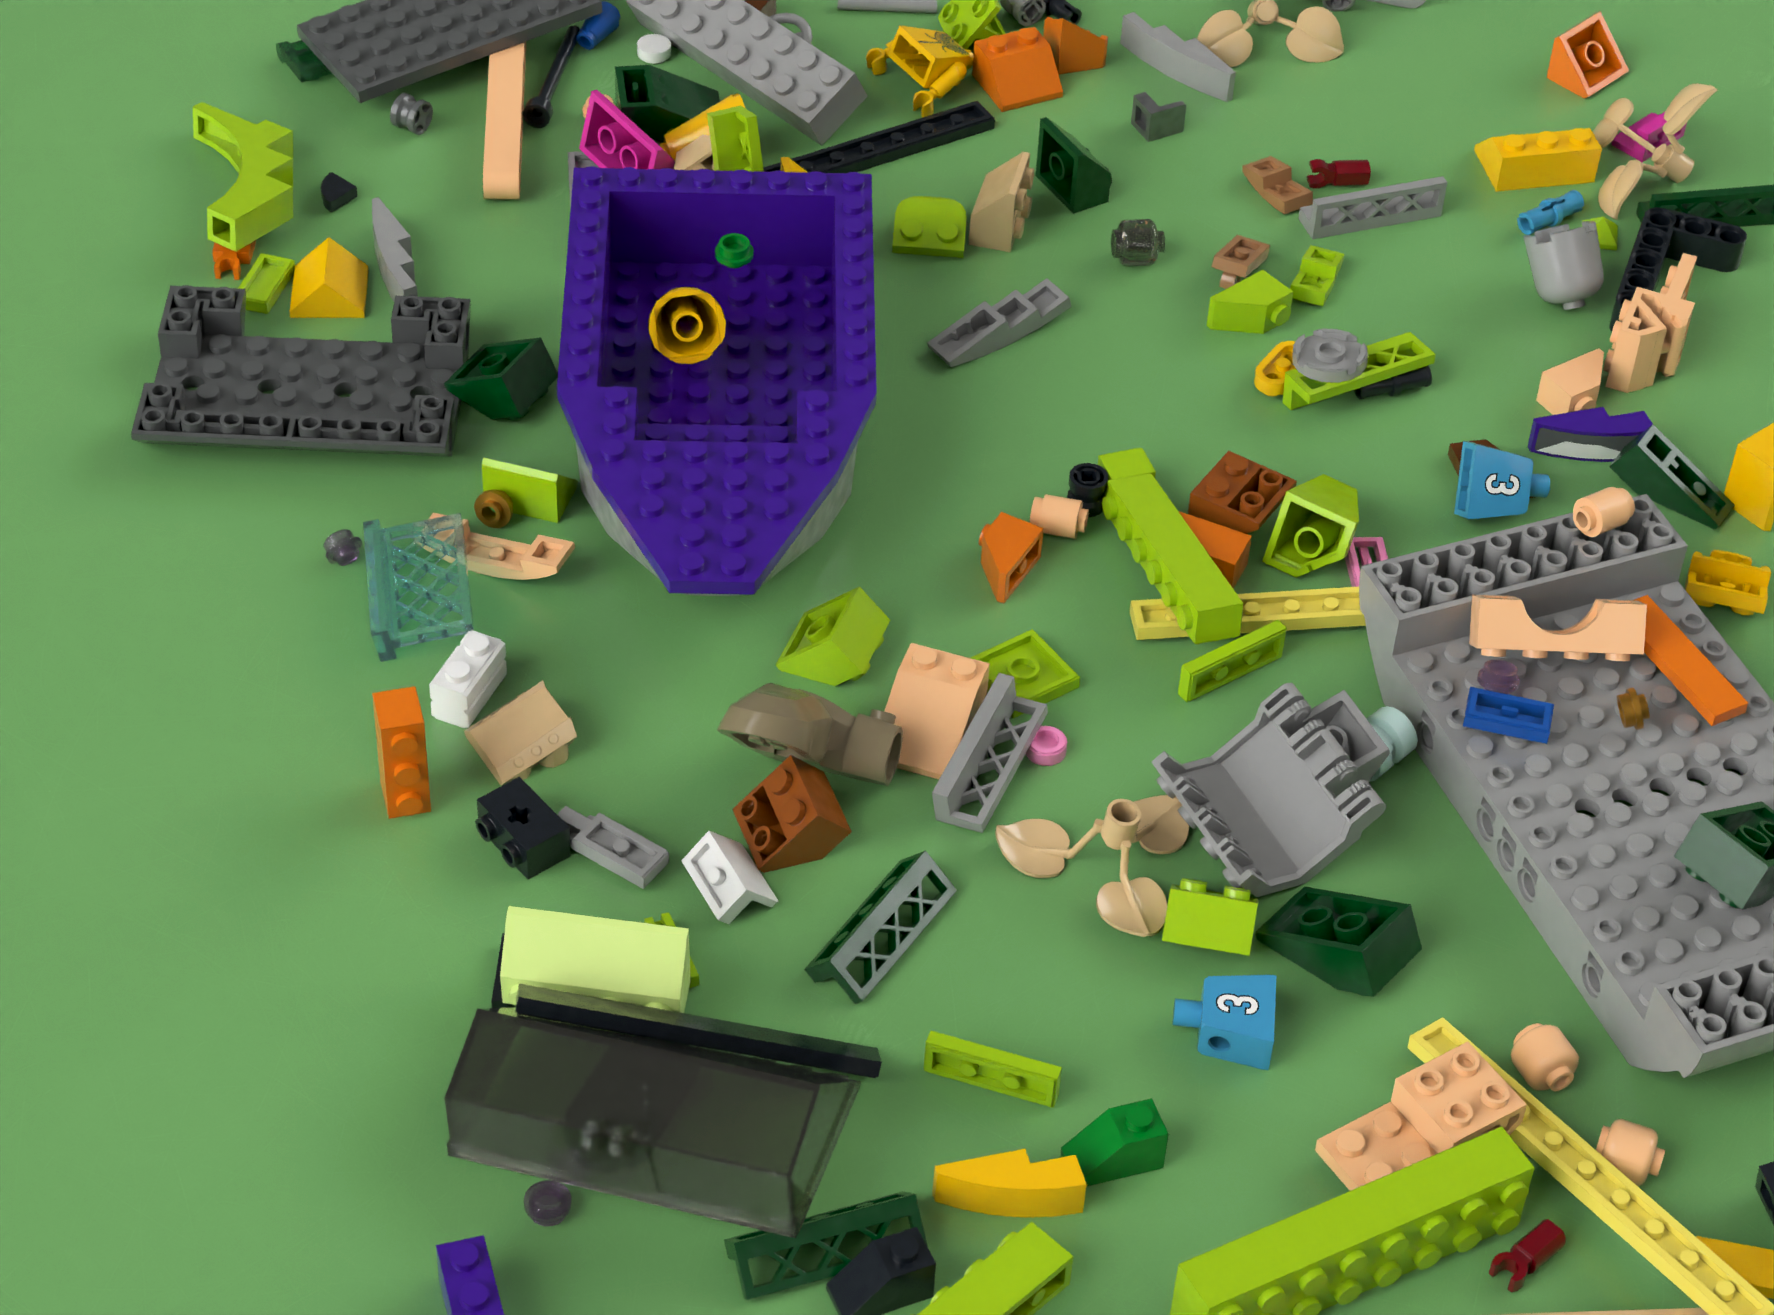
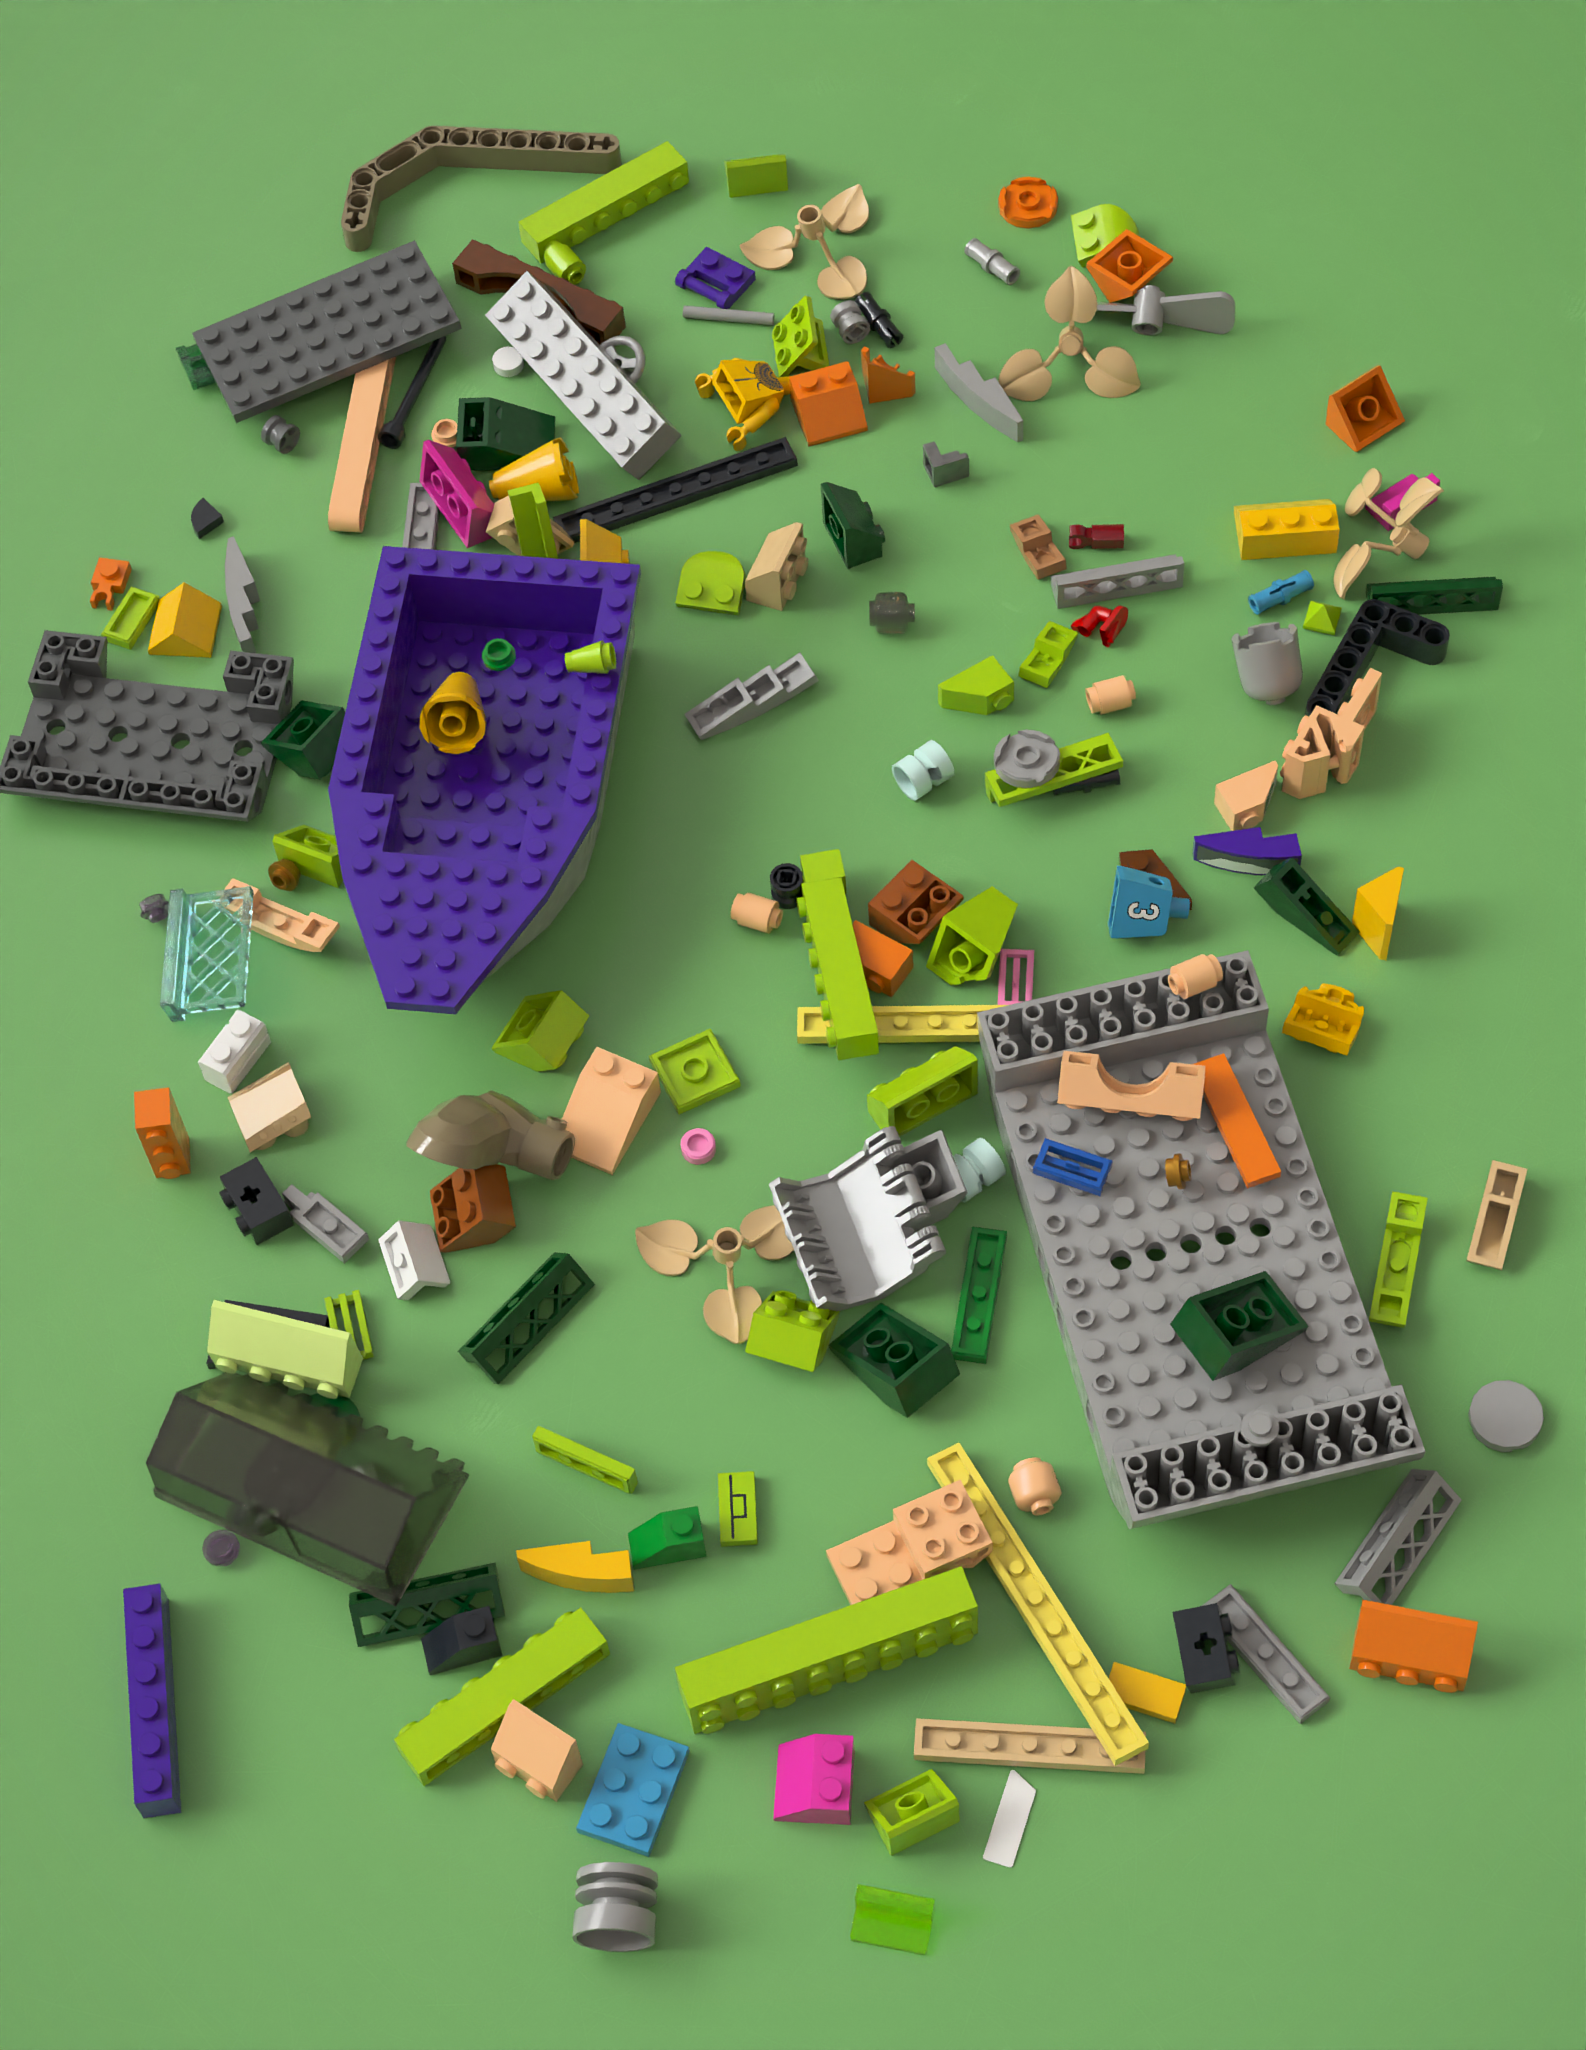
camera: 15 degrees right, 15 degrees up
(264, 186) = (134, 529): lime arch -> none
(598, 26) = (461, 339): blue cone -> none
(697, 1031) = (354, 1412): black tile -> none
(843, 248) = (594, 658): none -> lime cone
(975, 748) = (634, 1150): light grey fence -> none
(1009, 553) = (706, 949): orange slope -> none
(1190, 1111) = (737, 1509): none -> lime tile
(1212, 377) = (919, 772): none -> light aqua wheel
(1231, 661) = (869, 1074): lime tile -> none
(1233, 1018) = (789, 1428): dark azure torso -> none
(1239, 259) = (979, 635): medium nougat plate -> none
(1271, 370) = (981, 760): yellow plate -> none
(1313, 663) = (925, 1090): none -> lime slope
(1379, 245) = (1113, 623): none -> red piece
(1397, 305) = (1110, 695): none -> light nougat brick
(1418, 867) = (979, 1295): none -> green tile
(1499, 676) = (1071, 1131): clear purple plate -> none
(1529, 1253) = (975, 1664): dark red bar -> none
(1631, 1149) = (1079, 1580): light nougat head -> none

